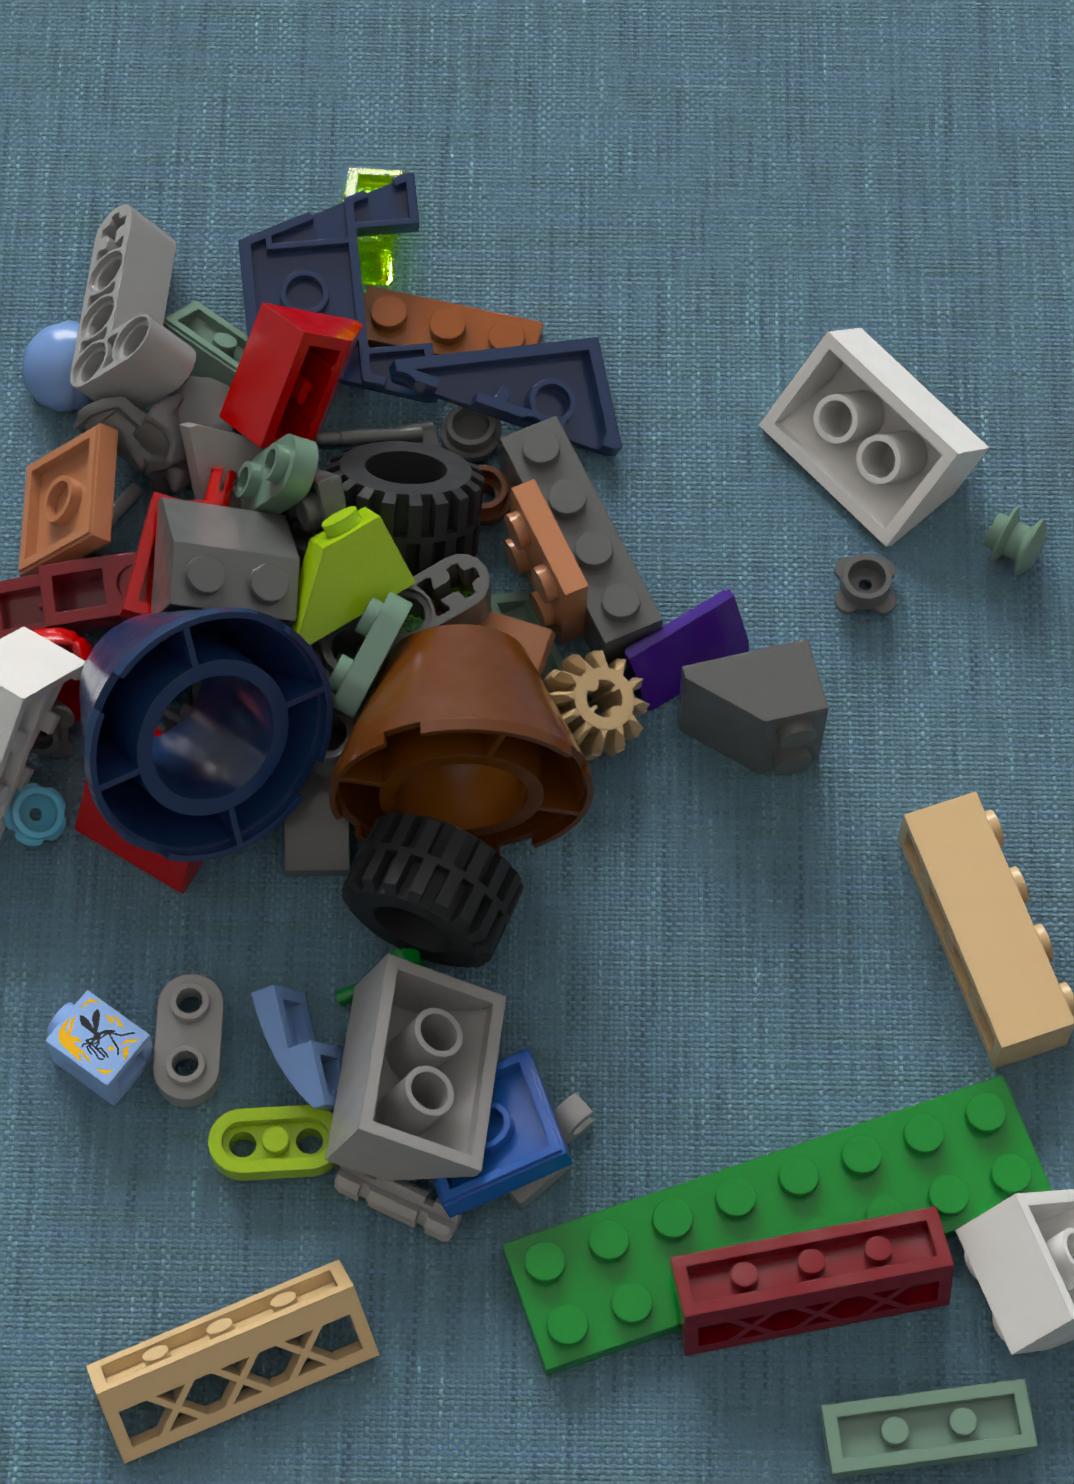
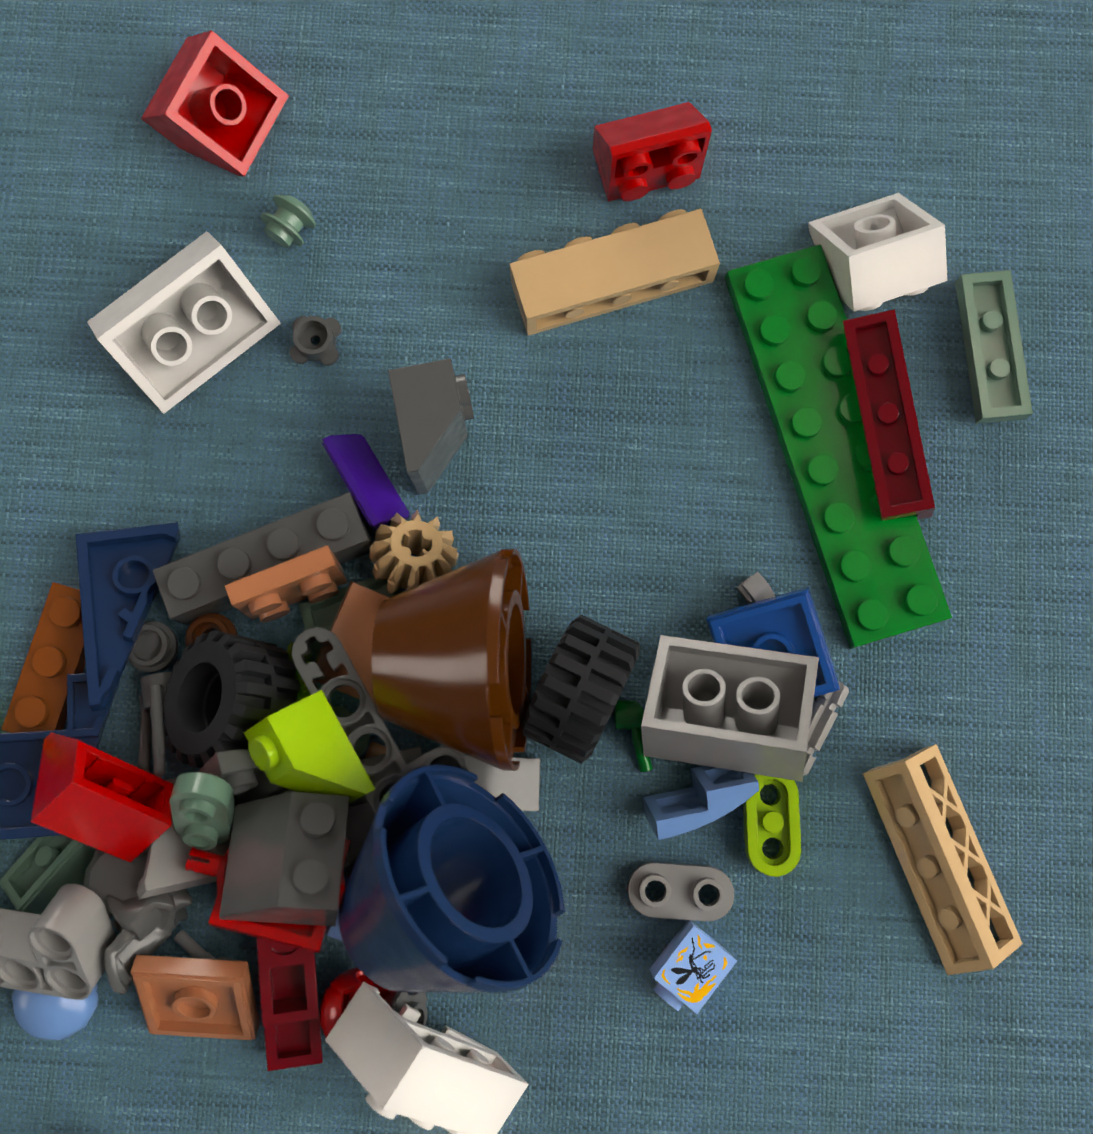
camera: 85 degrees left, 15 degrees up
(52, 818) = (495, 1018): medium azure plate -> none
(380, 627) = (366, 720): sand green plate -> none

